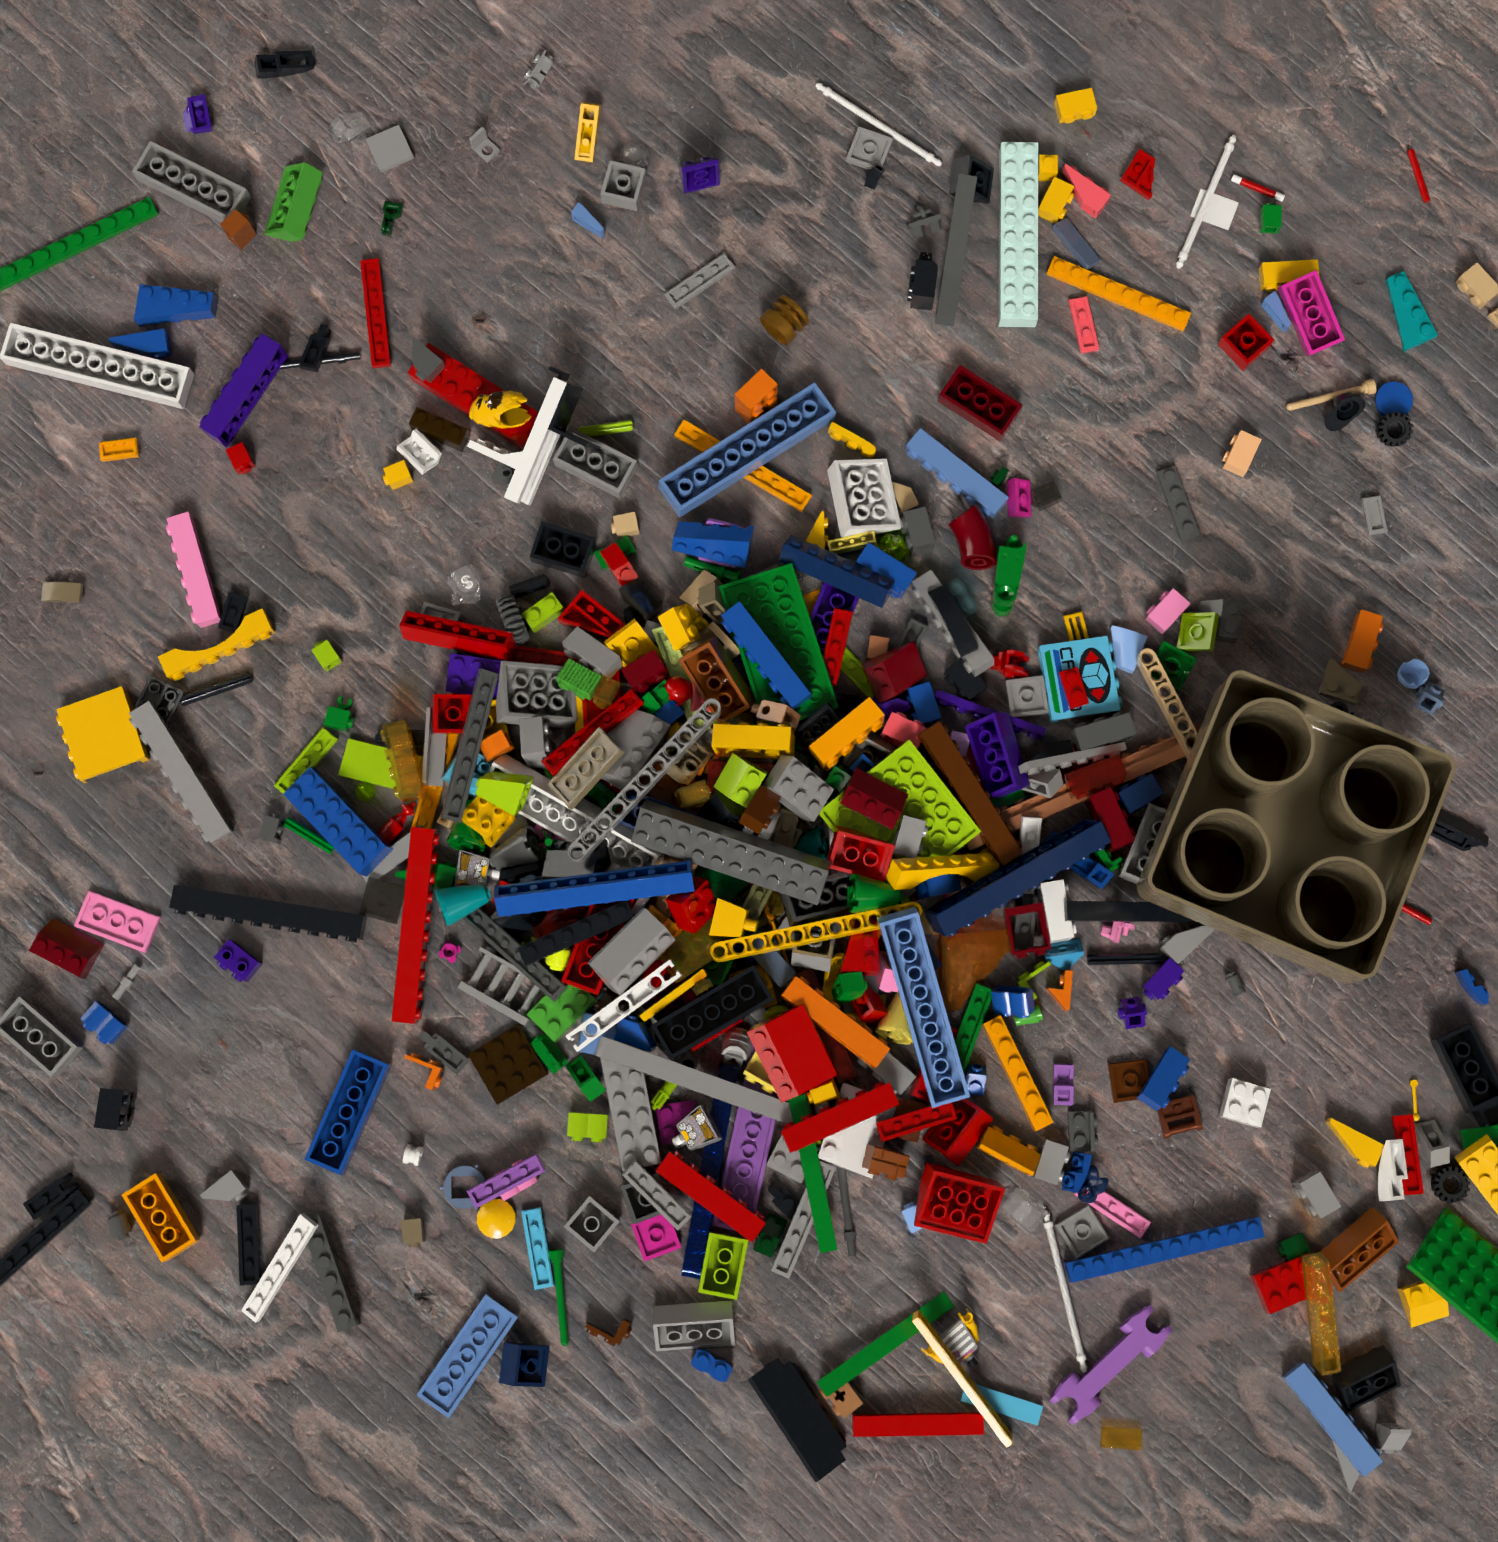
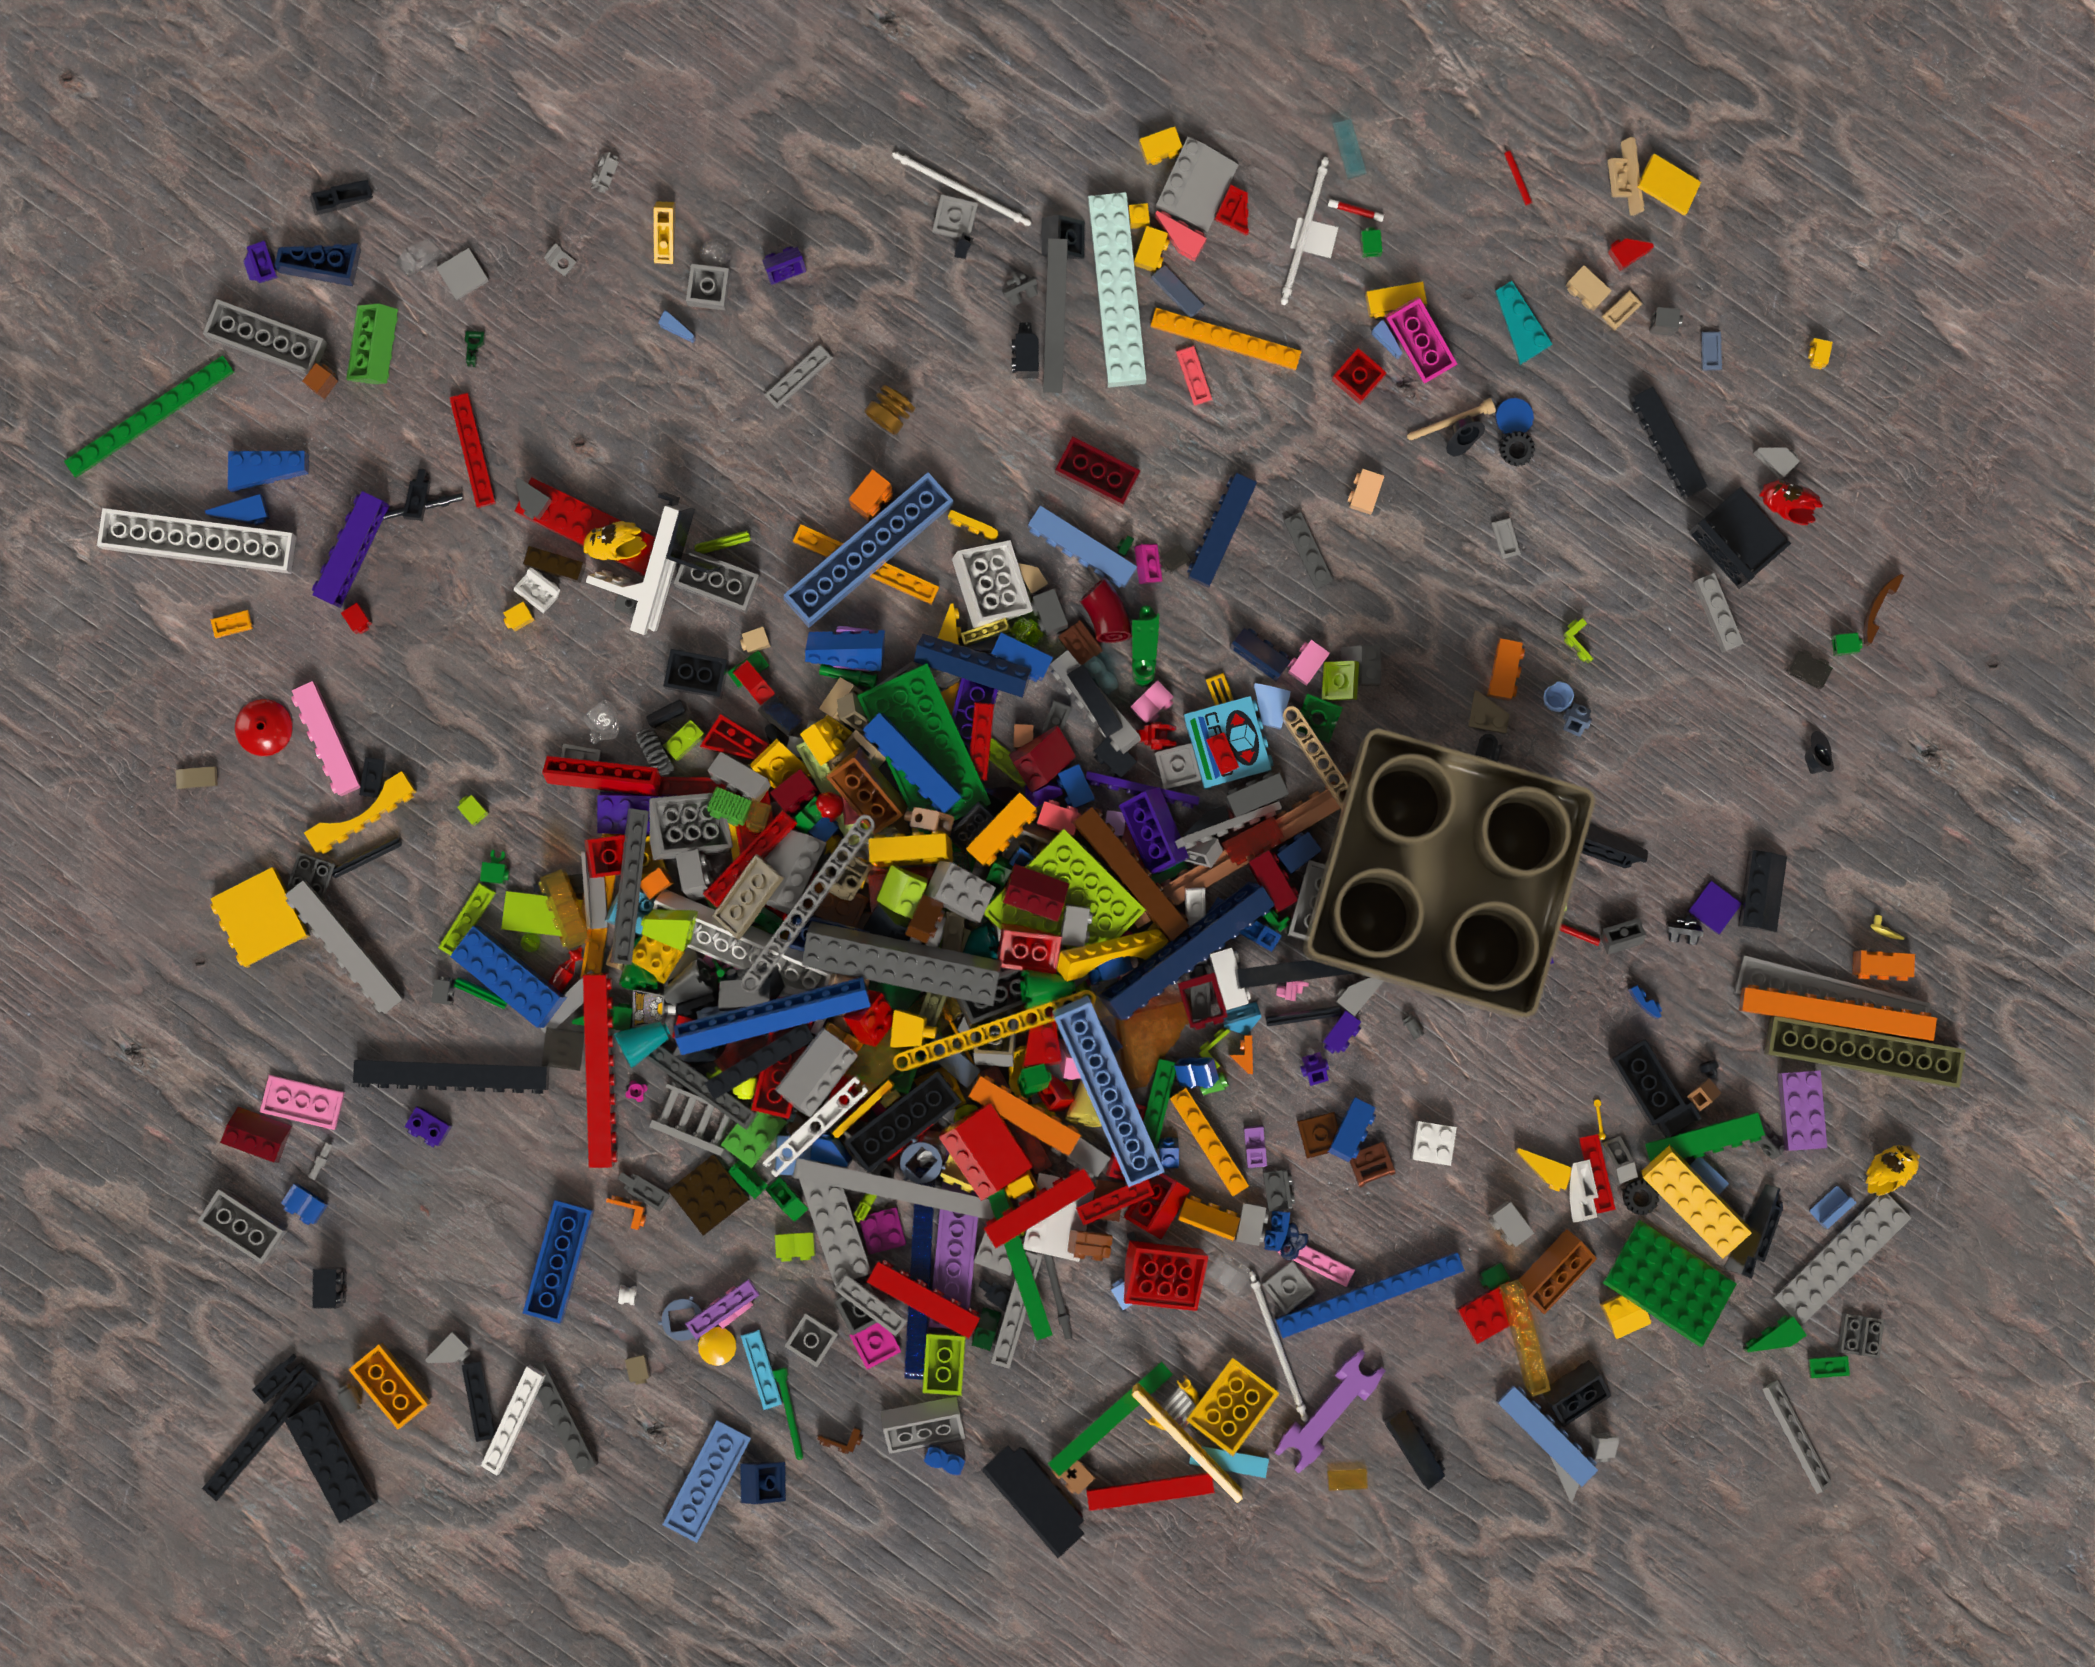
camera: 10 degrees left, 5 degrees up
(91, 1286) = (331, 1461): none -> black brick
(143, 560) = (276, 730): none -> red dish
(255, 121) = (321, 263): none -> dark blue wedge
(693, 795) = (857, 911): clear yellow slope -> none
(697, 1130) = (902, 1236): torso -> none
(734, 1069) = (932, 1172): none -> sand blue piece
(944, 564) = (1080, 643): none -> copper plate
(1008, 632) = (1152, 702): none -> bright pink brick
(1012, 1347) = (1232, 1407): none -> yellow slope
(1095, 474) = (1224, 526): none -> dark blue brick
(1106, 145) = (1197, 185): none -> light grey slope
(1120, 597) = (1260, 653): none -> dark blue slope
(1194, 1415) = (1414, 1448): none -> black slope
(1257, 130) = (1349, 149): none -> clear light blue plate
(1431, 622) = (1570, 640): none -> lime bracket
(1456, 918) = (1623, 936): none -> dark grey brick

